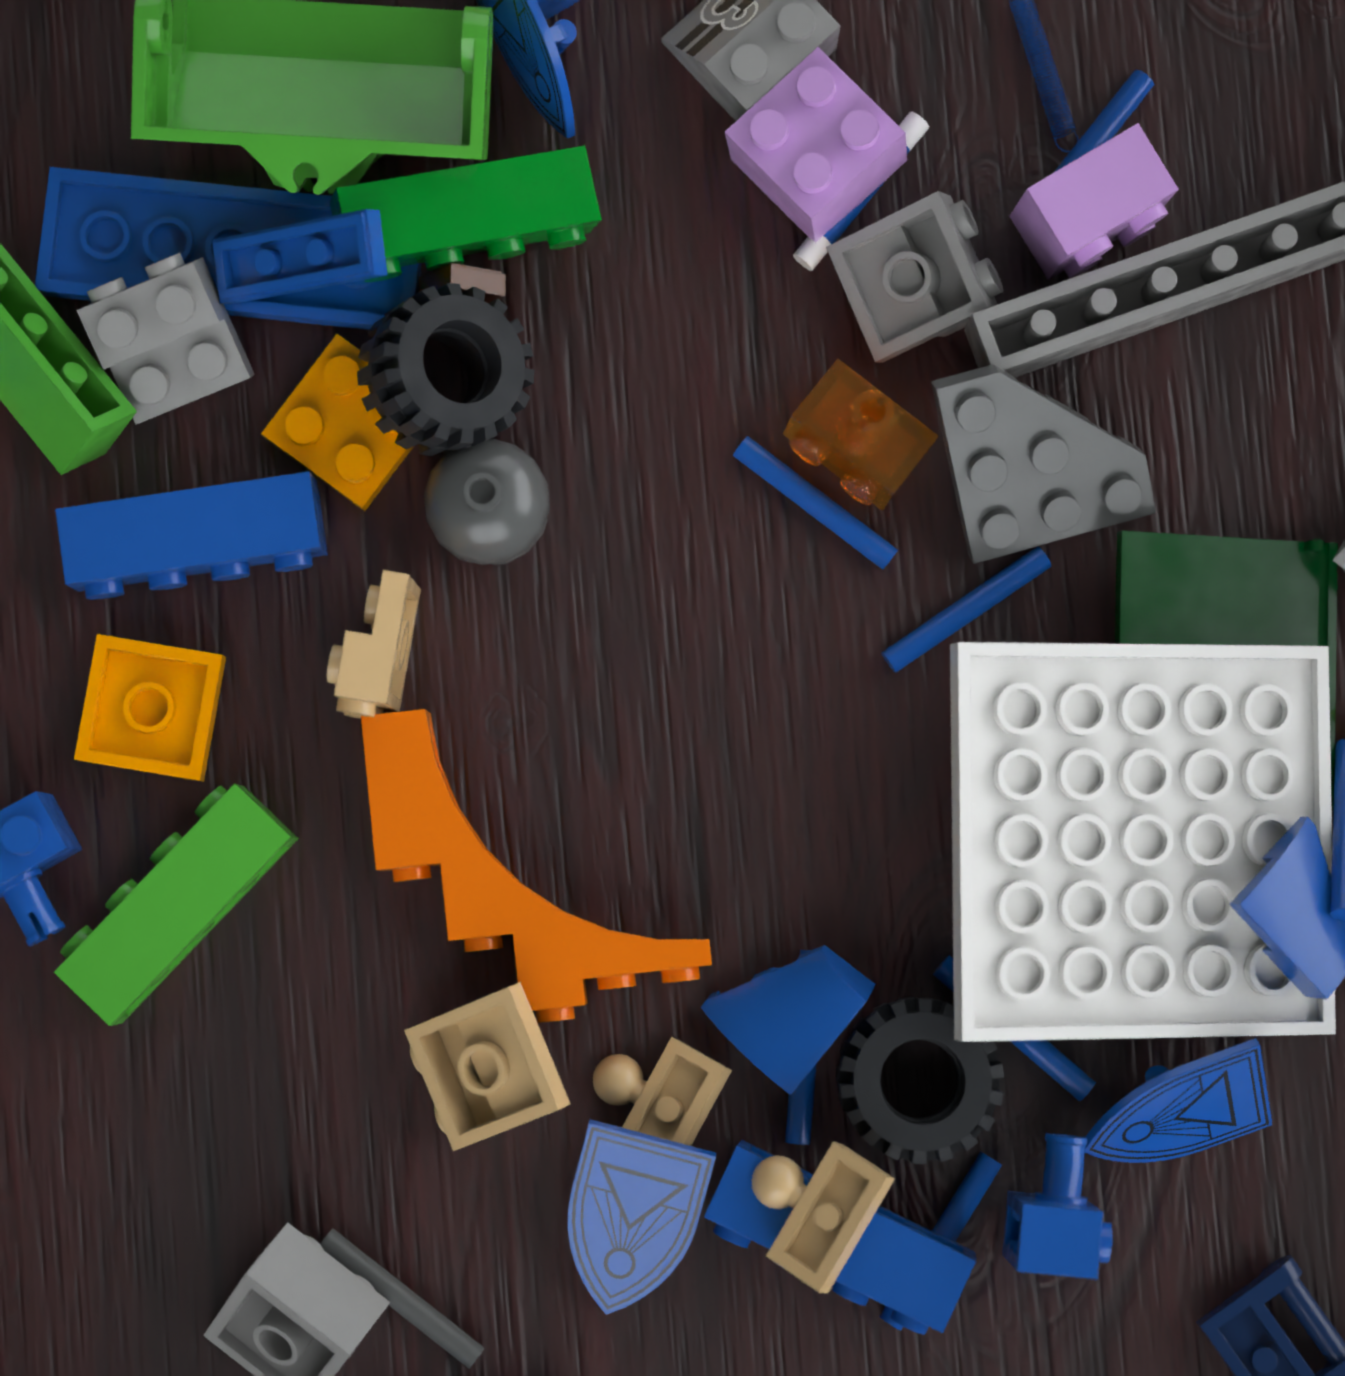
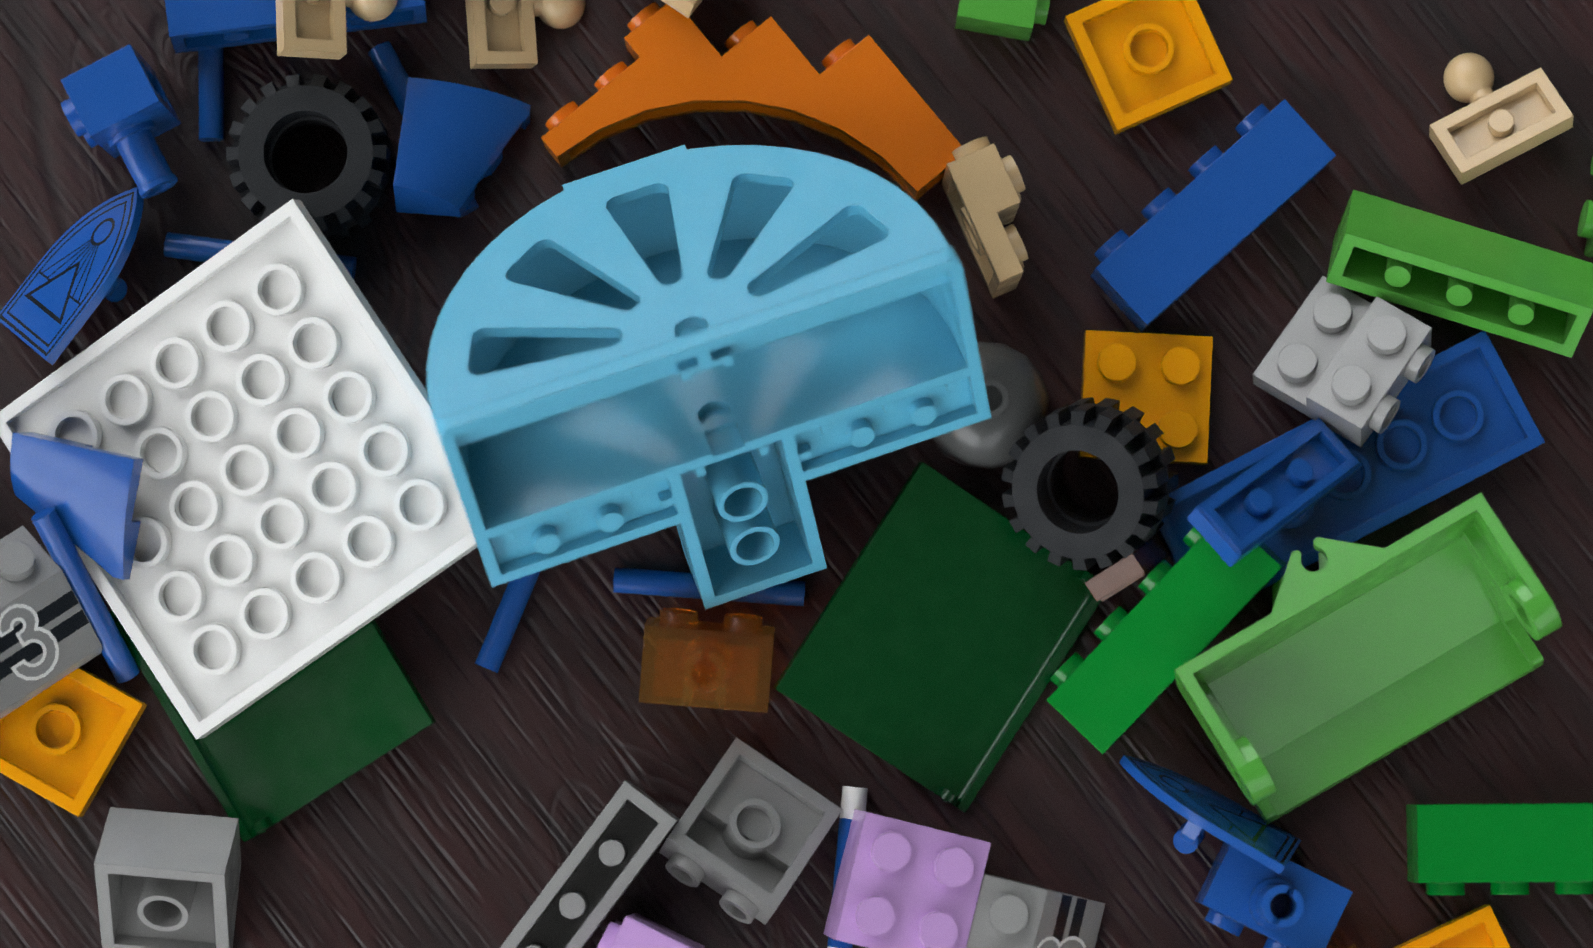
camera: 145 degrees right, 0 degrees up
(654, 333) = (940, 638): none -> dark green container
(707, 680) = (695, 355): none -> medium azure piece
(1032, 465) = (543, 731): plate -> none

